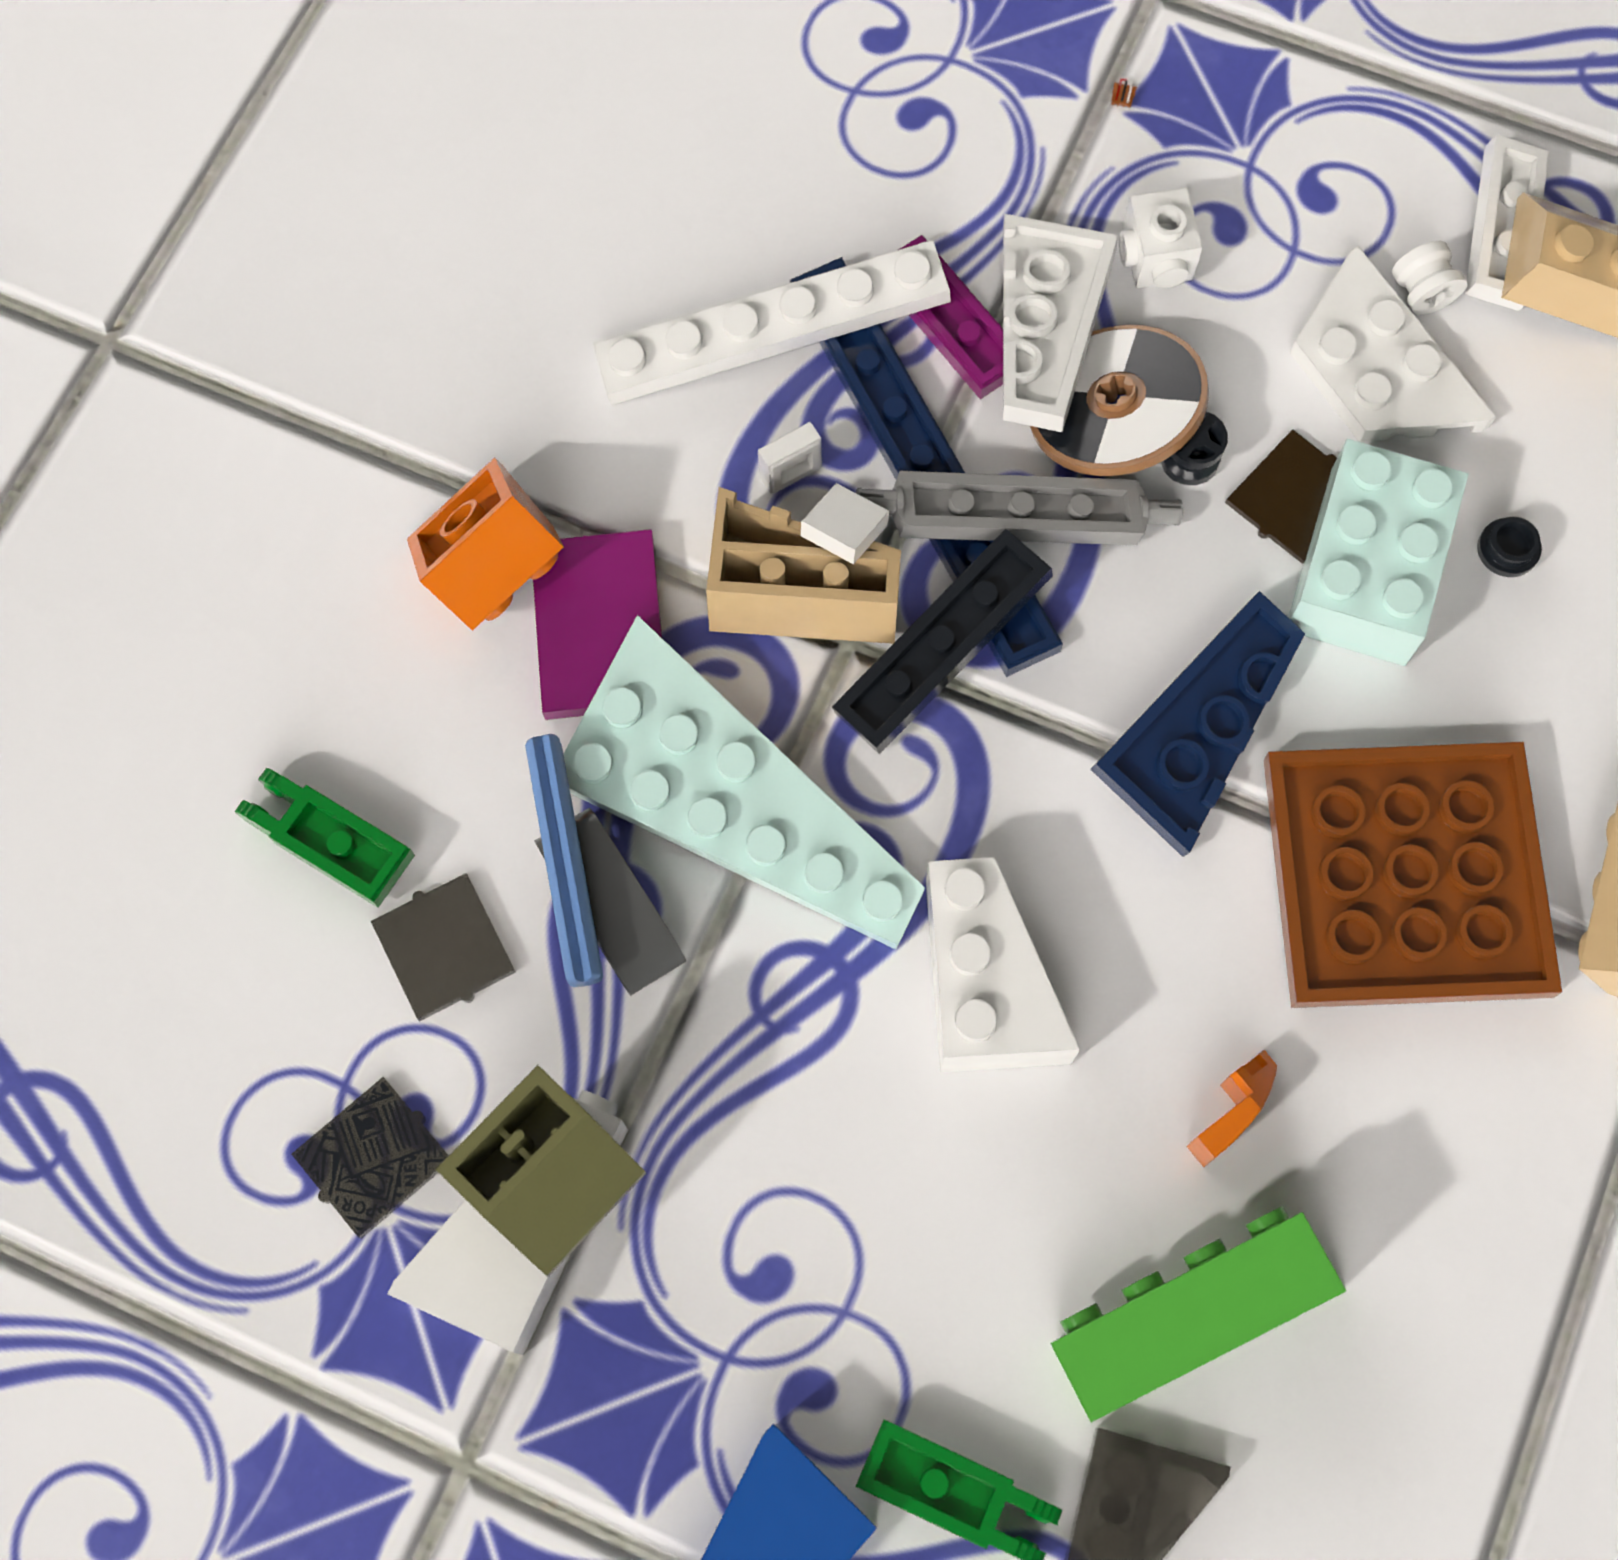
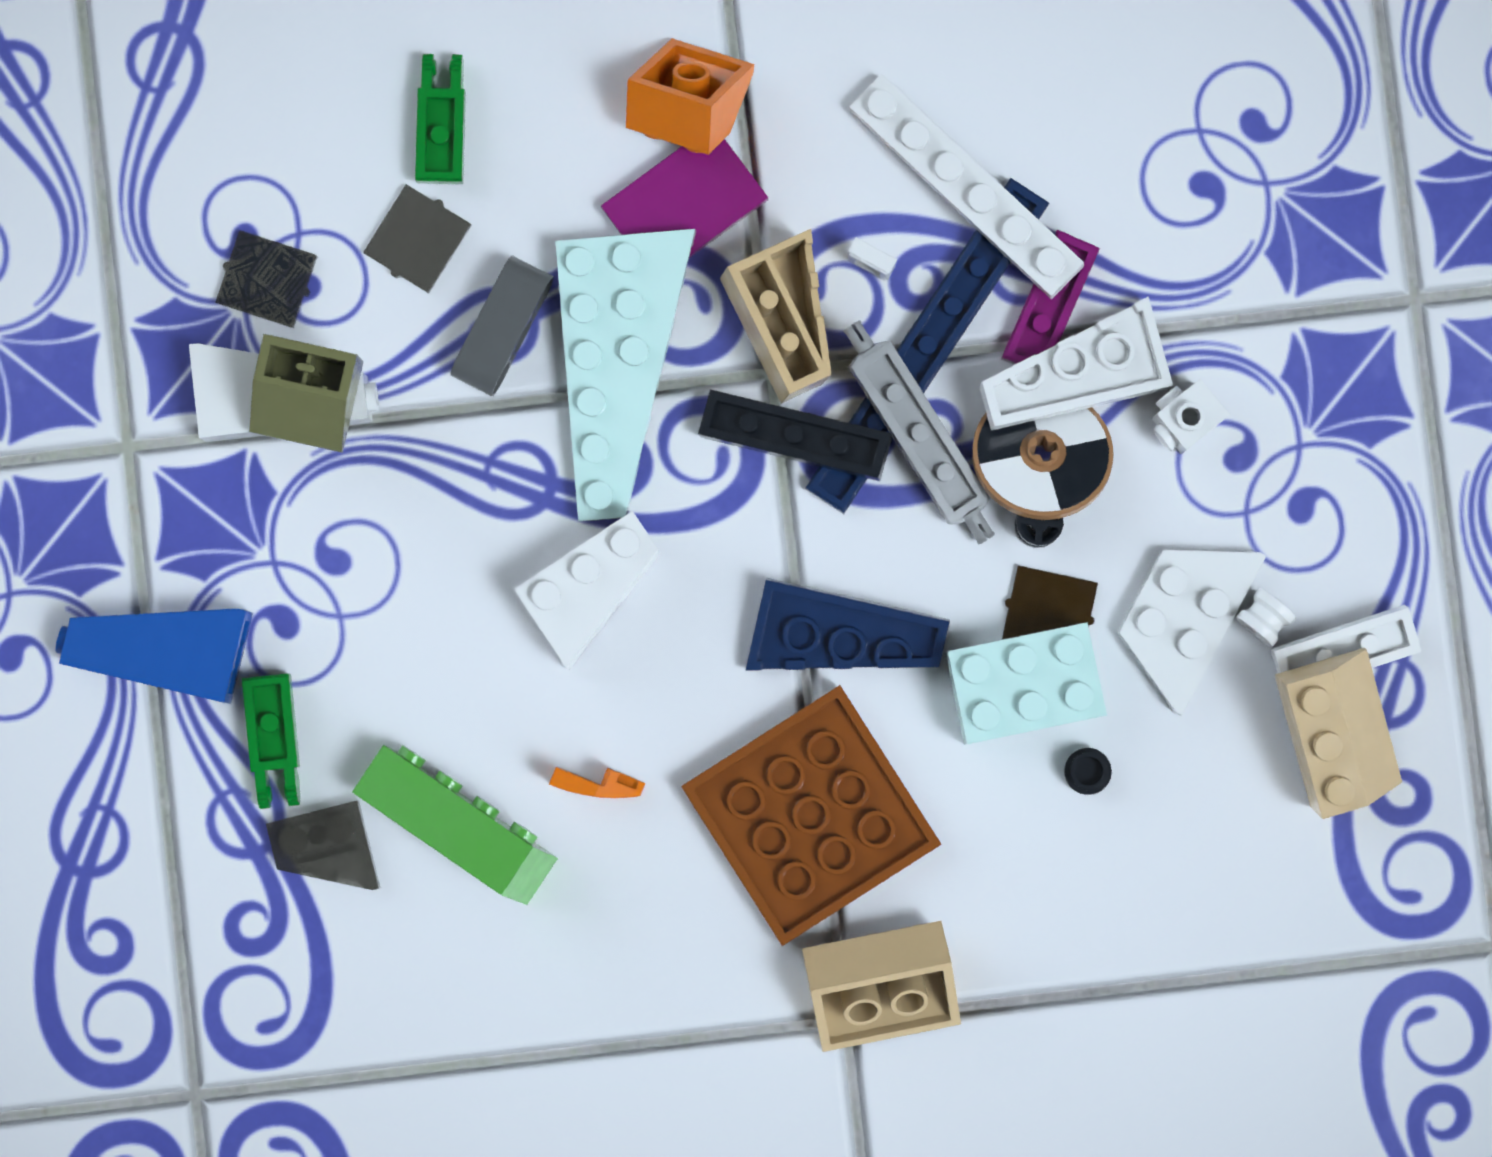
camera: 65 degrees right, 15 degrees up
(563, 861) = (503, 284): medium blue axle -> none
(844, 523) = (825, 328): white tile -> none
(1122, 94) = (1306, 325): dark orange piece -> none

